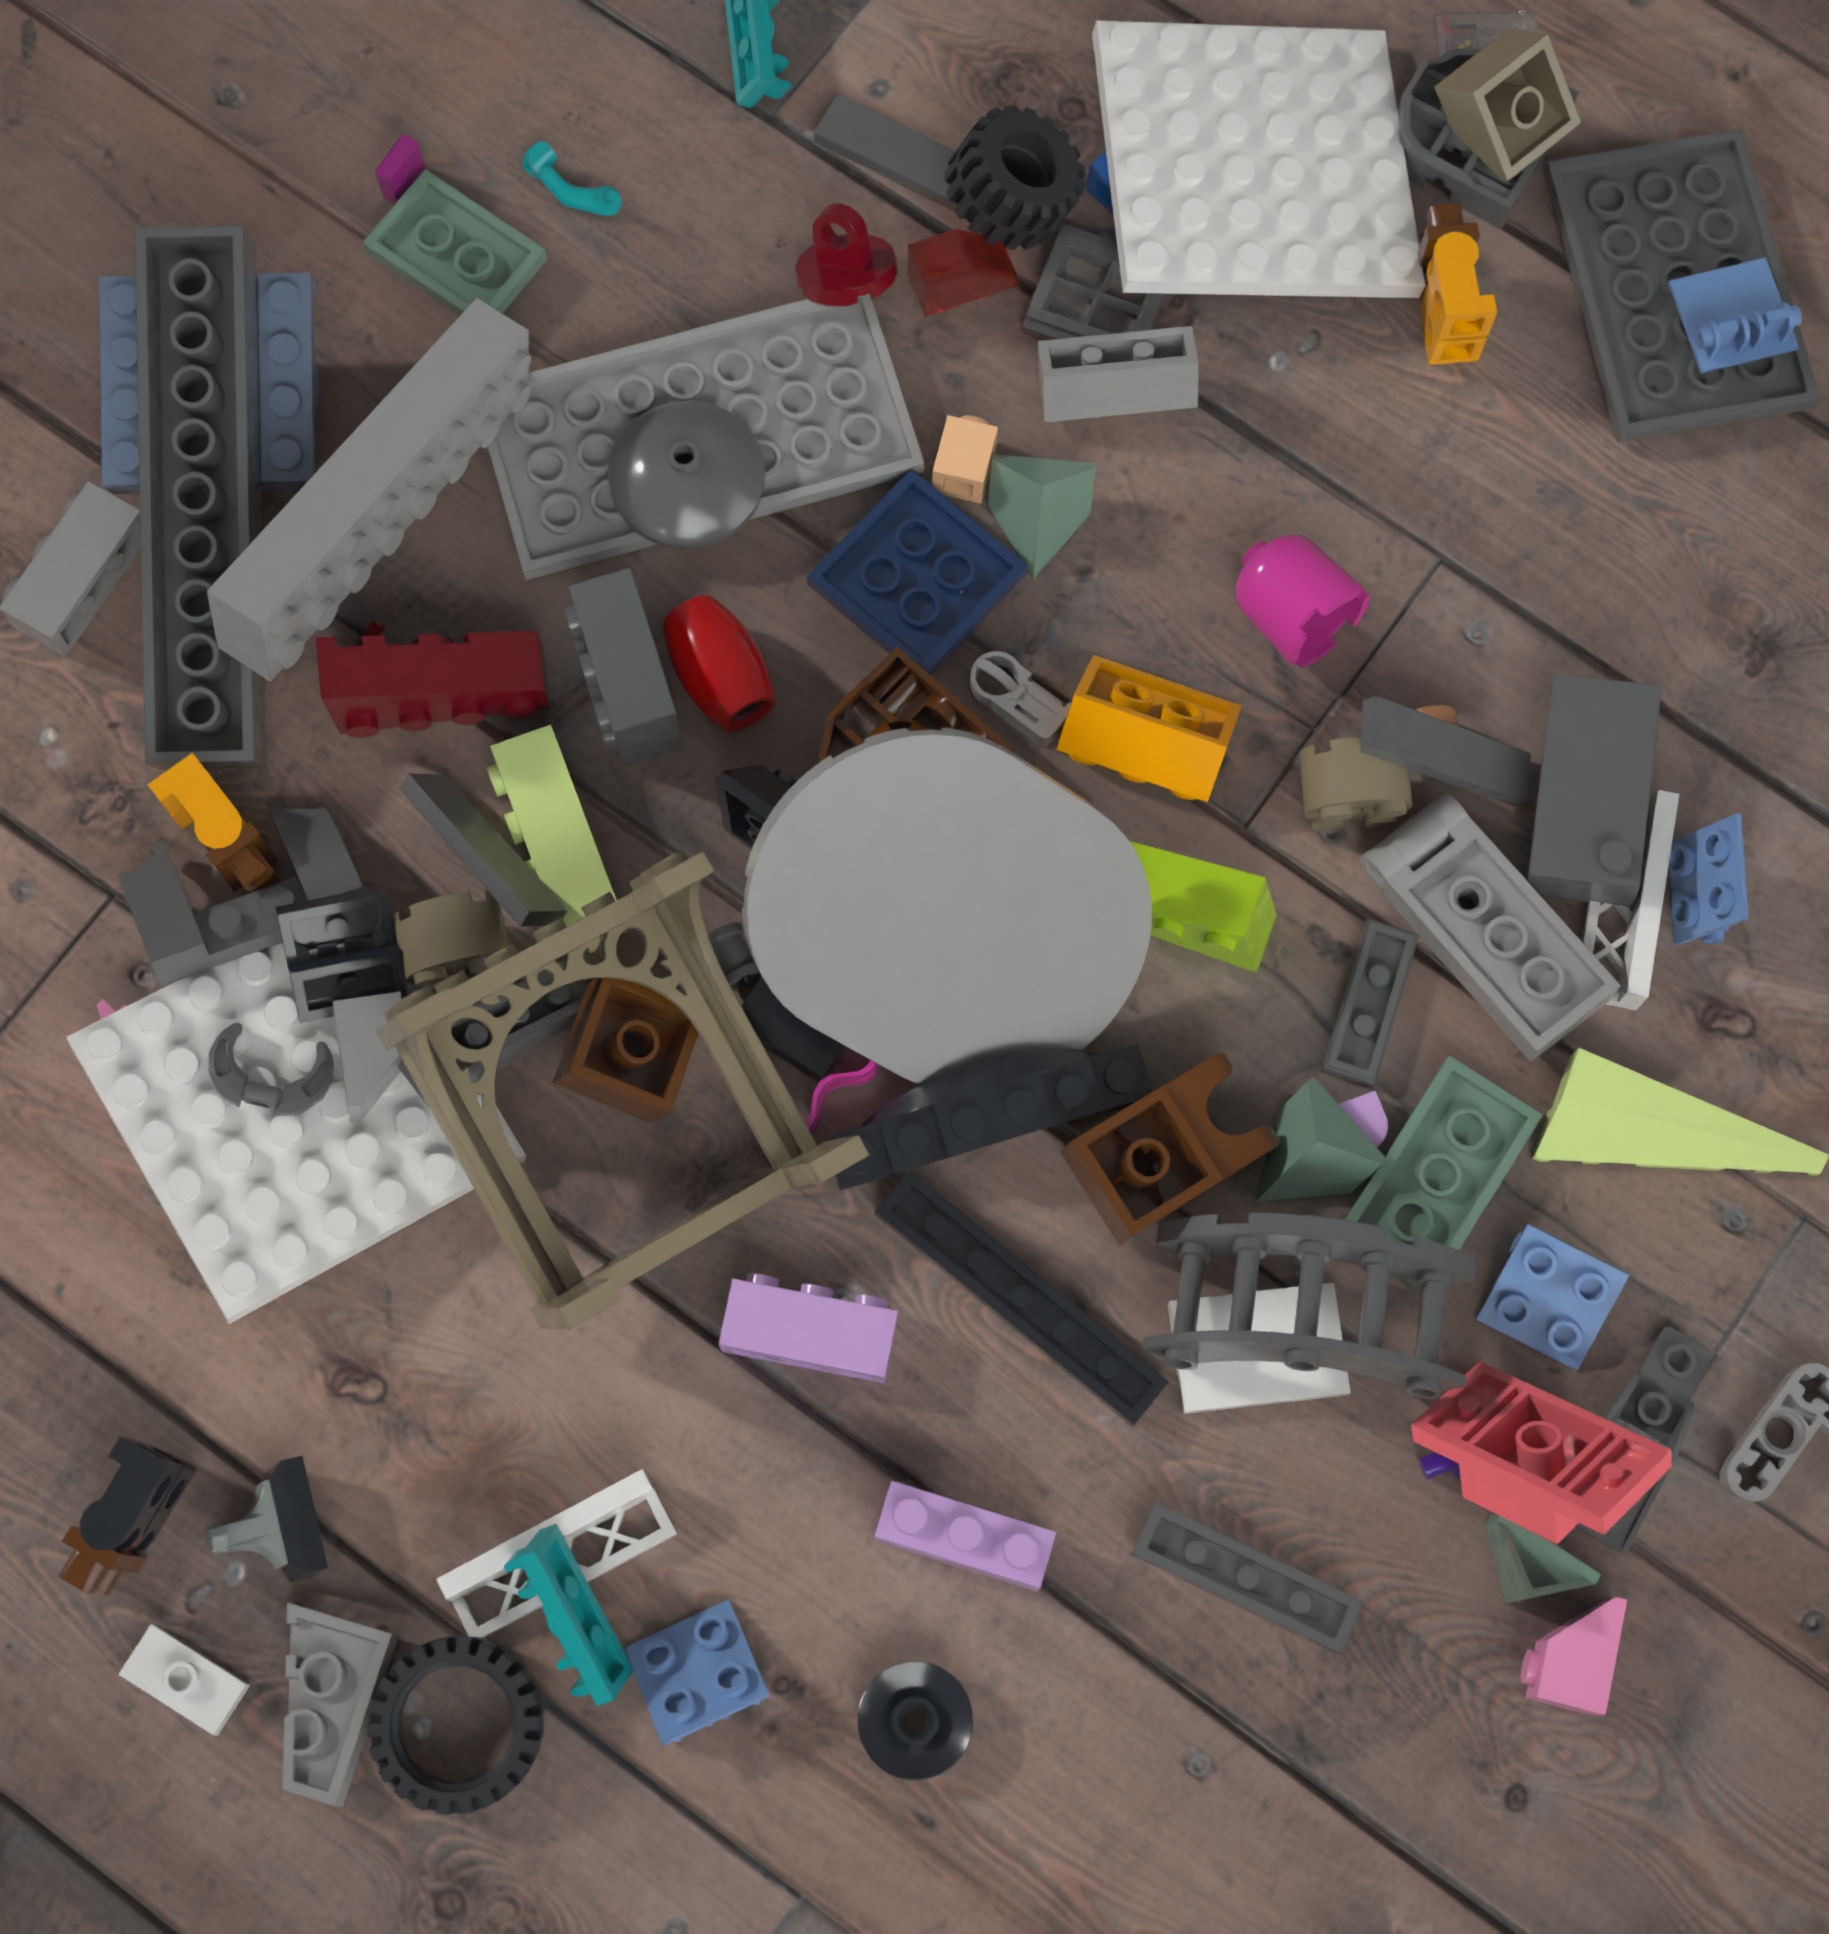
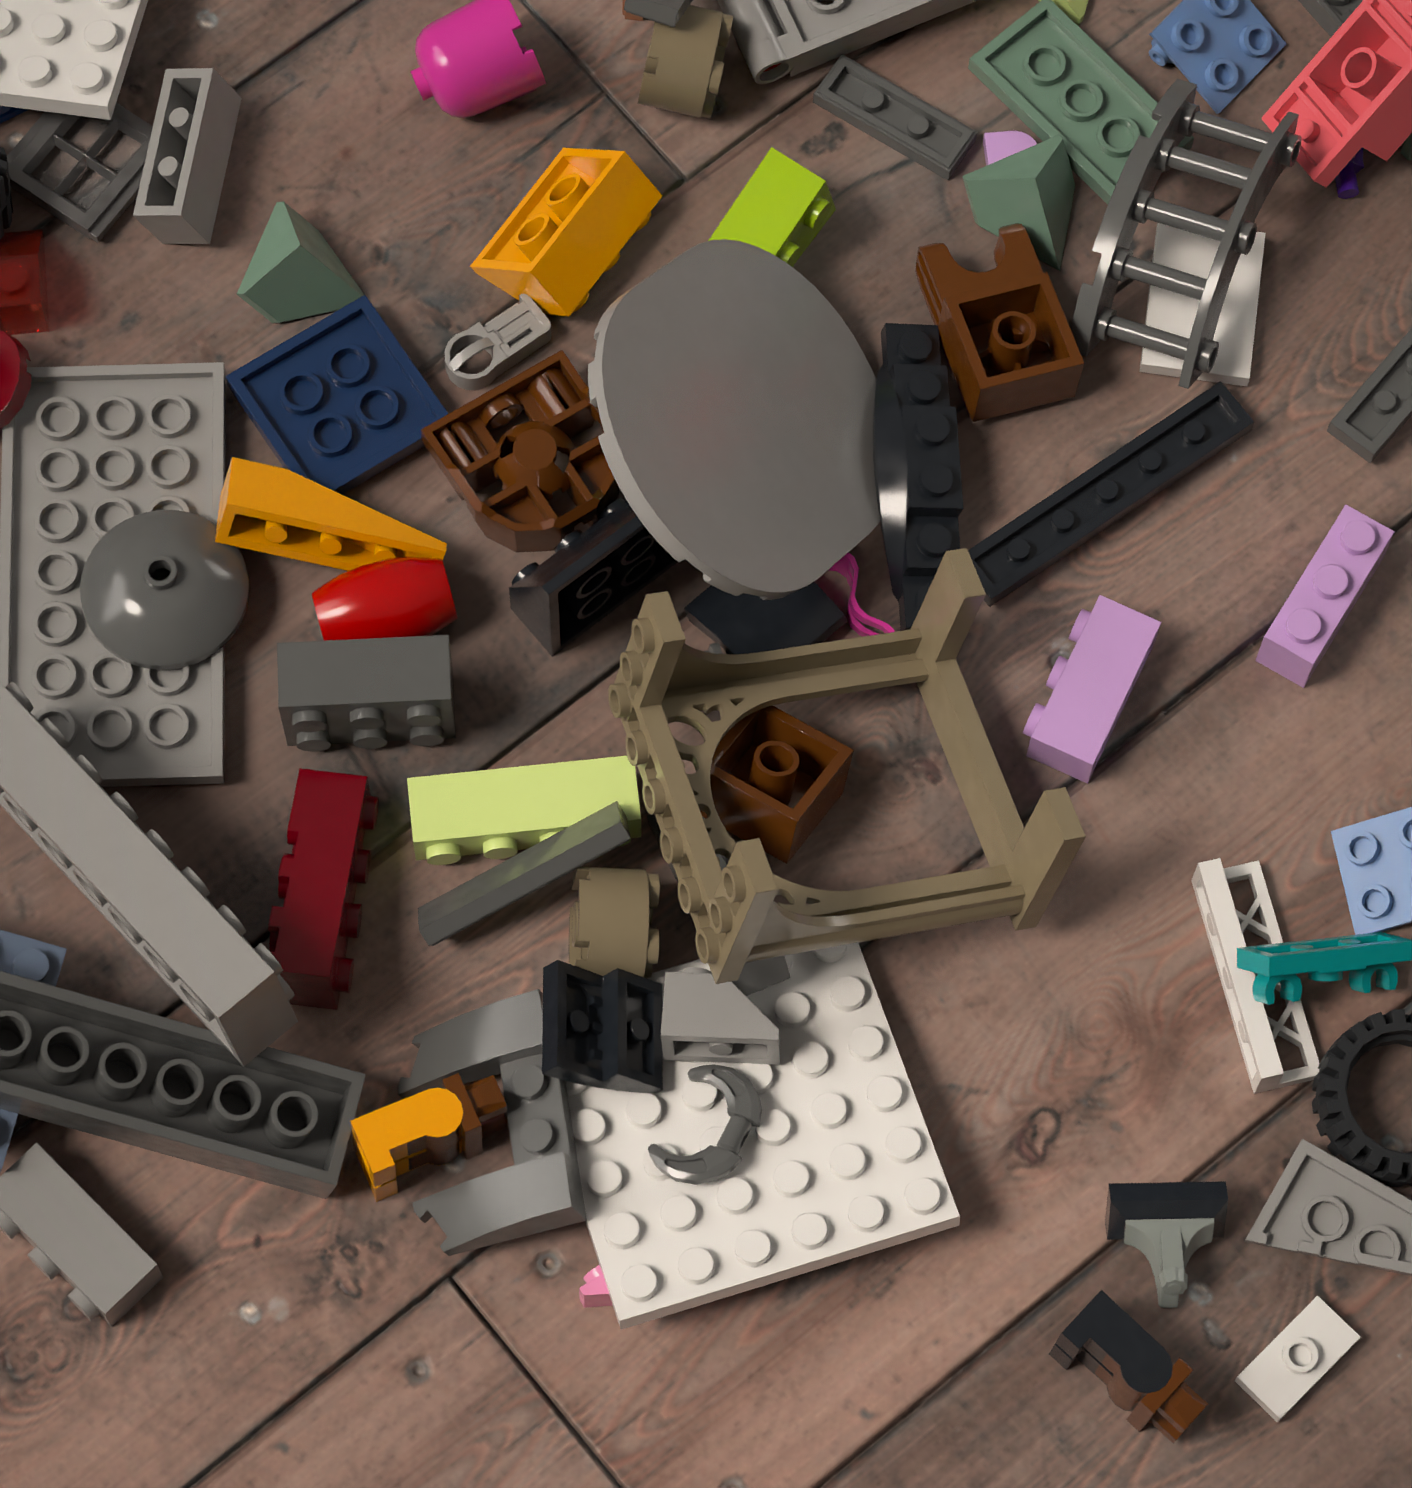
camera: 75 degrees left, 5 degrees down
(779, 562) = (301, 520): none -> light orange slope
(964, 458) = (227, 324): light nougat brick -> none

